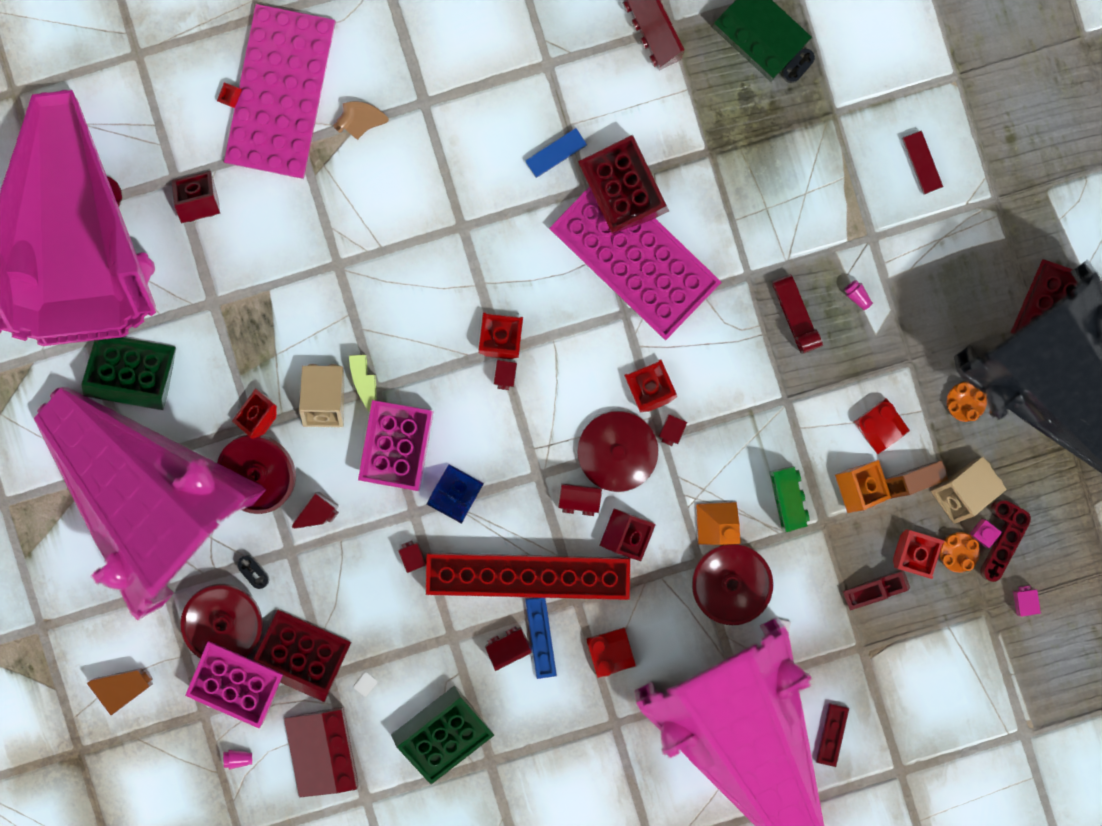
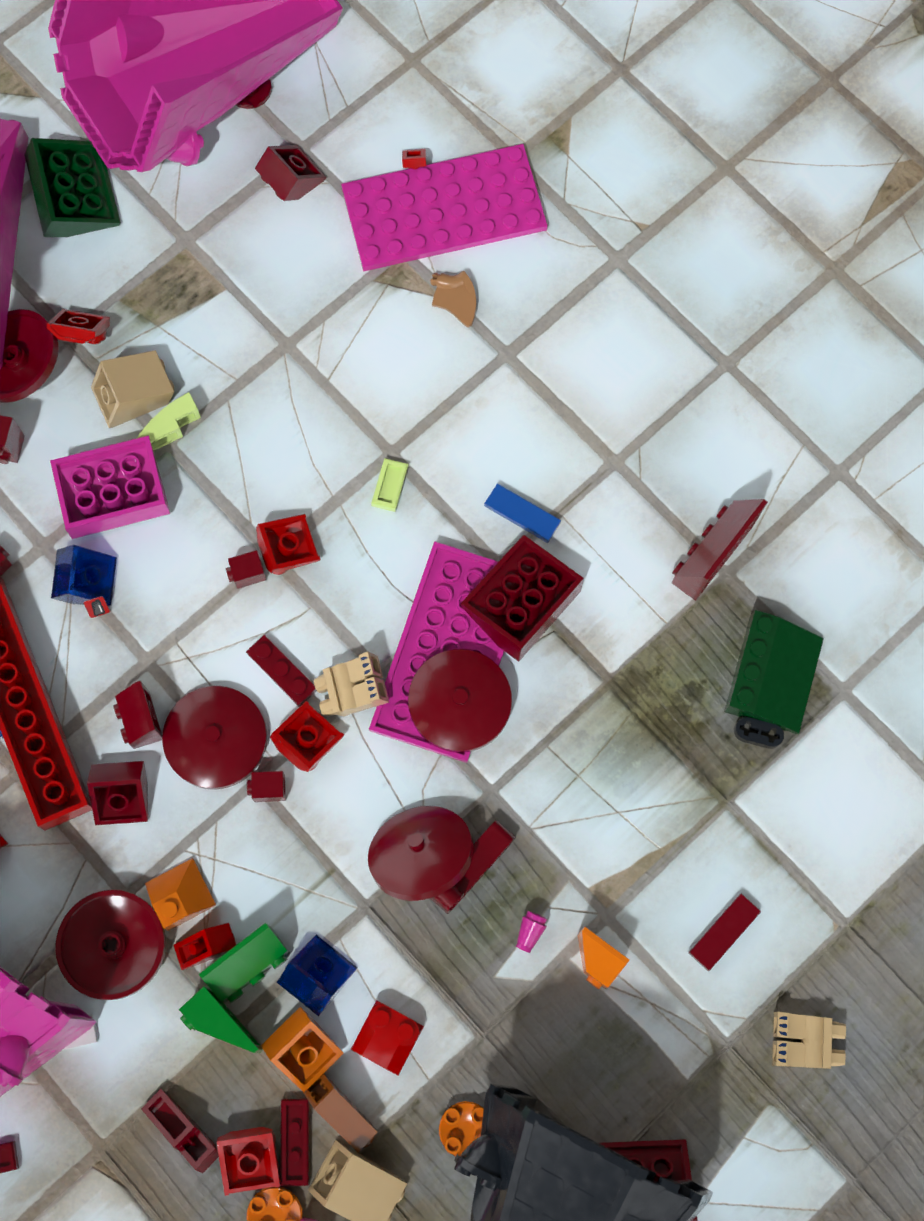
camera: 60 degrees right, 15 degrees down
(482, 493) = (96, 607): none -> sticker
(487, 239) = (389, 485): none -> yellowish green tile
(591, 382) = (281, 671): none -> dark red plate
(628, 344) = (352, 686): none -> tan hips
(677, 266) = (460, 700): none -> dark red dish
(763, 521) = (205, 945): none -> red slope
(772, 345) = (420, 853): none -> dark red dish
(818, 454) = (316, 975): none -> clear blue slope
(819, 534) = (212, 1017): none -> green slope
(902, 258) = (599, 959): none -> orange slope
(919, 518) = (294, 1142): none -> dark red tile
(1025, 140) = (815, 1044): none -> tan hips

